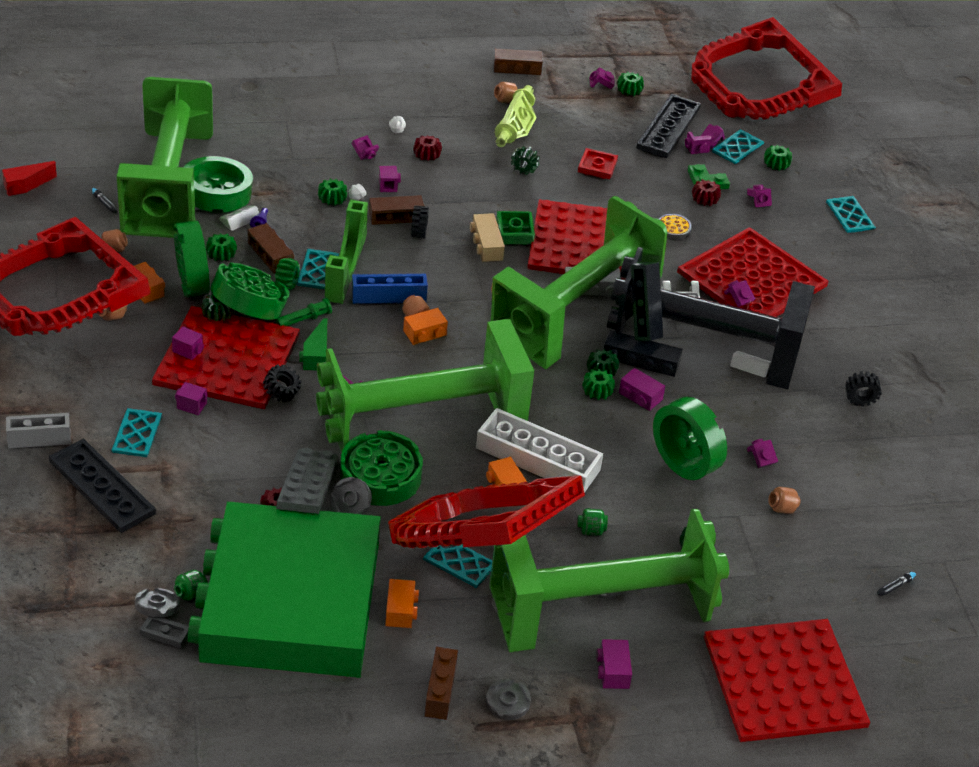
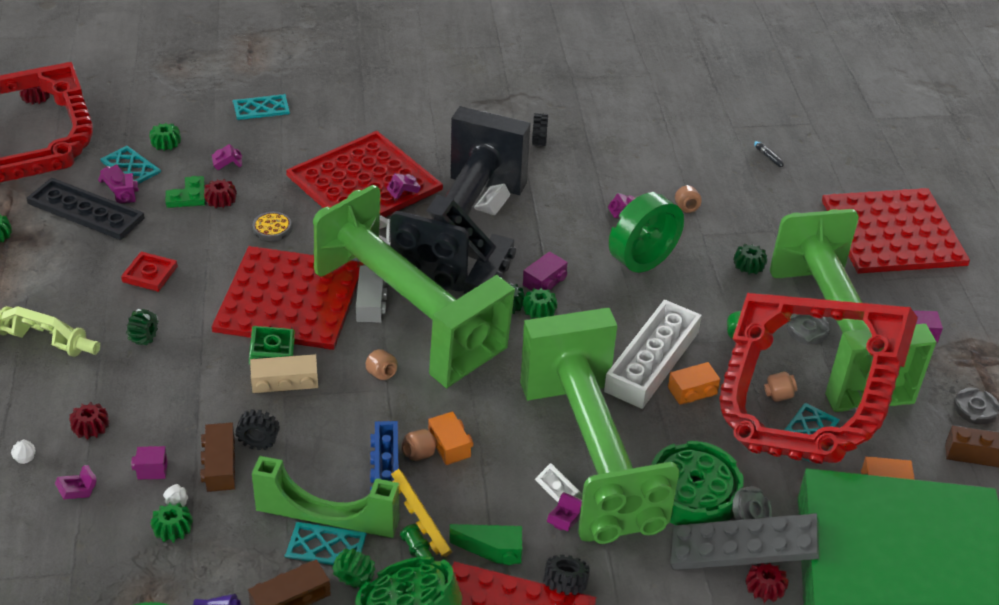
camera: 85 degrees left, 0 degrees up
(334, 299) = (425, 522): none -> yellow plate

